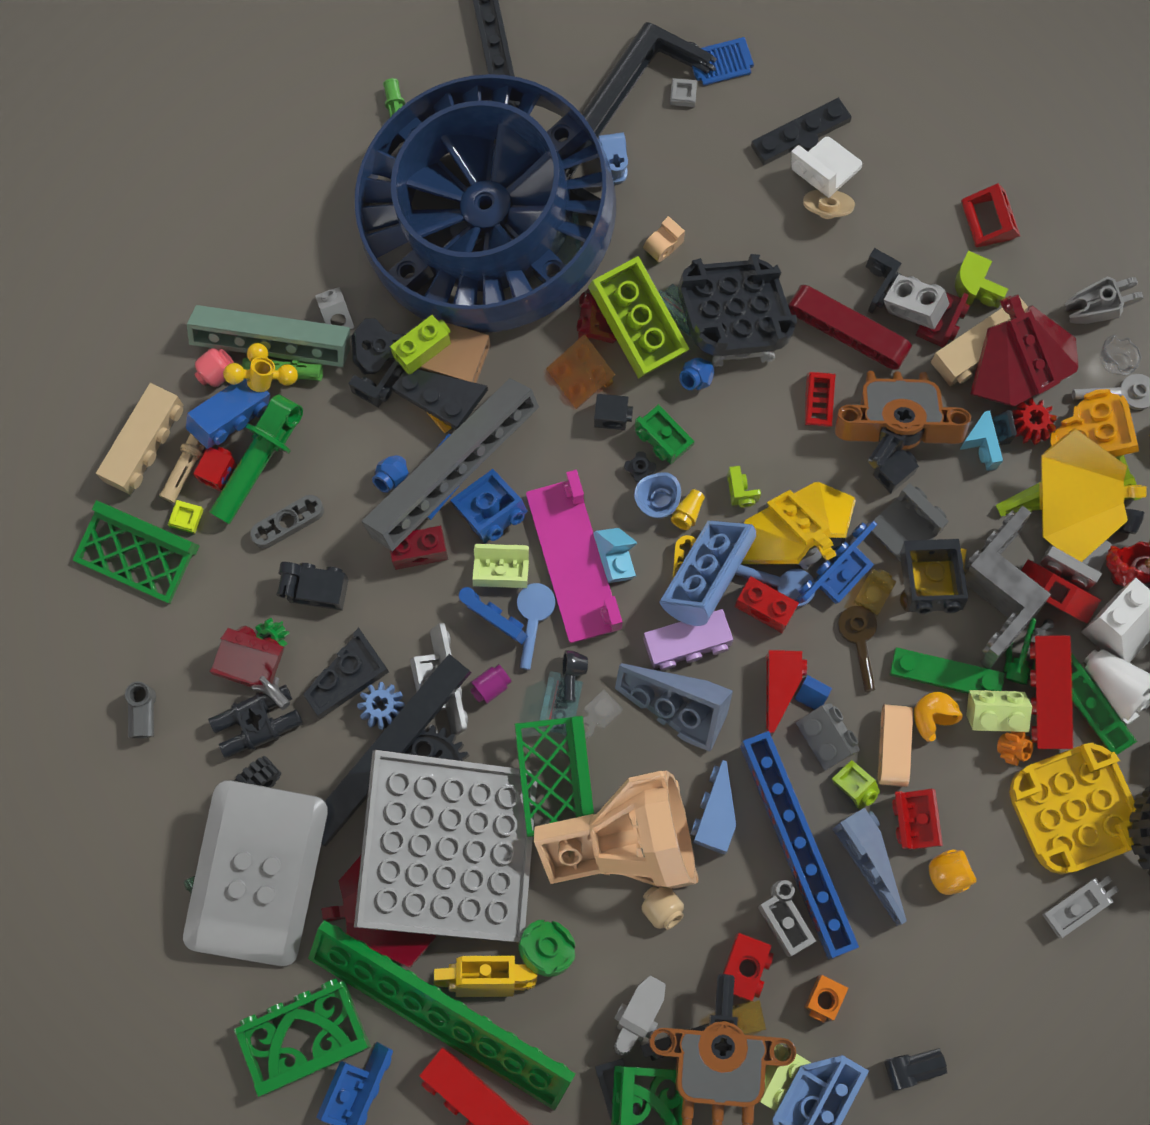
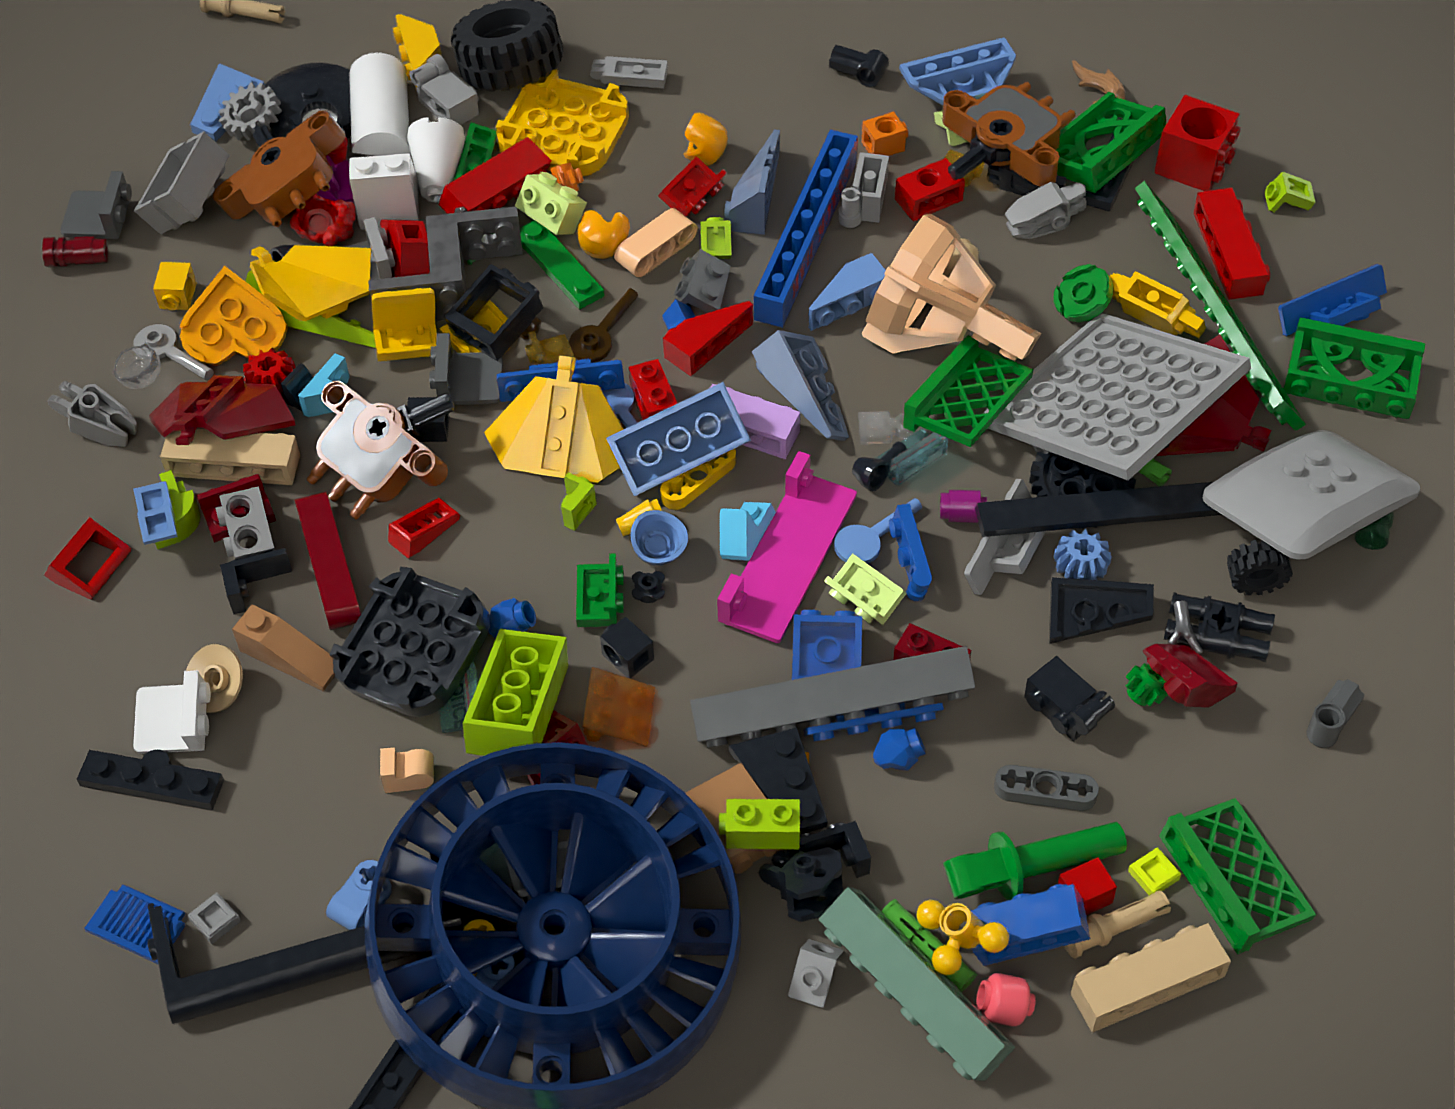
camera: 140 degrees left, 20 degrees down
(812, 253) = (283, 647): none -> medium nougat slope
(972, 258) = (155, 512): none -> medium blue slope
(977, 517) = (404, 323): none -> yellow bracket

